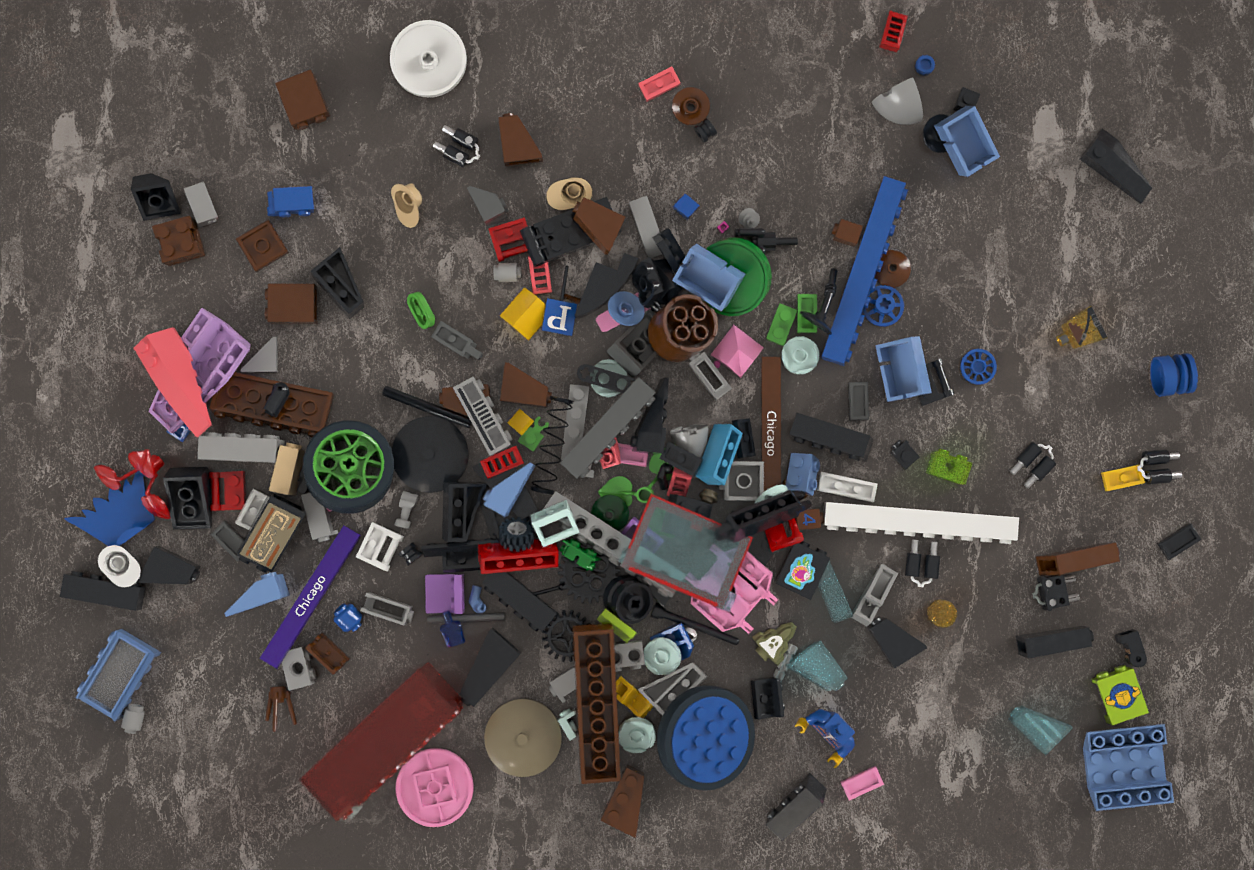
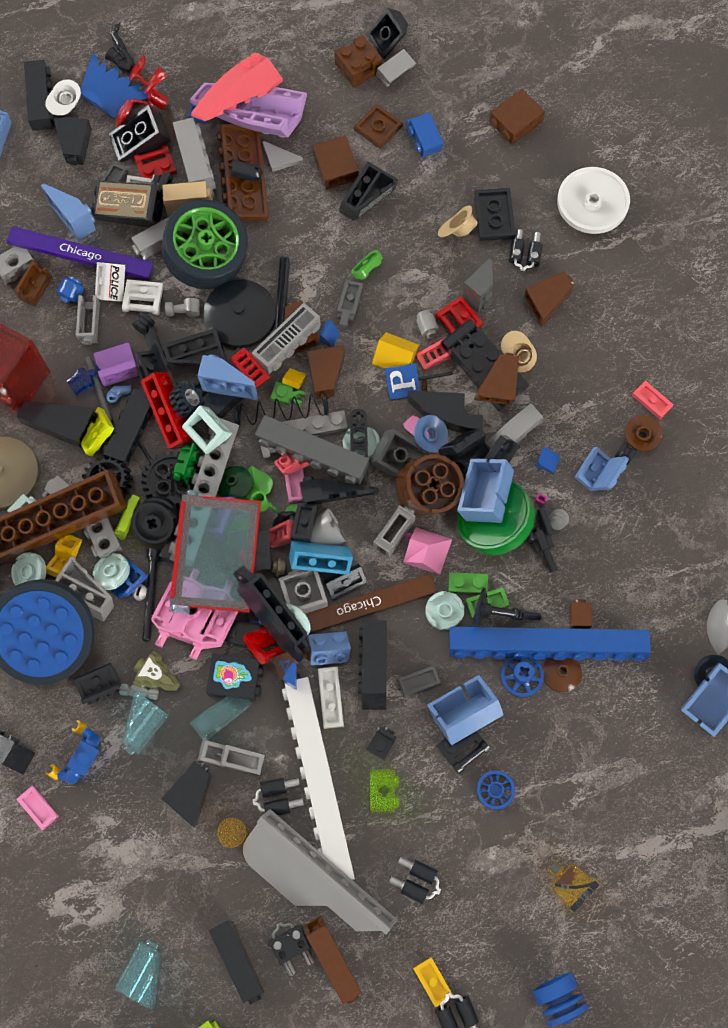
camera: 75 degrees right, 15 degrees down
(84, 490) = (121, 58): none -> black piece
(260, 488) = (165, 179): none -> black tile
(353, 575) = (110, 281): none -> white panel
(407, 162) = (494, 214): none -> black plate
(484, 372) = (329, 334): none -> blue slope
(515, 631) = (97, 433): none -> neon yellow wing
(717, 160) = (600, 470): none -> medium blue bracket
(824, 517) = (290, 676): none -> blue slope
(1005, 555) = (309, 877): none -> light grey piece

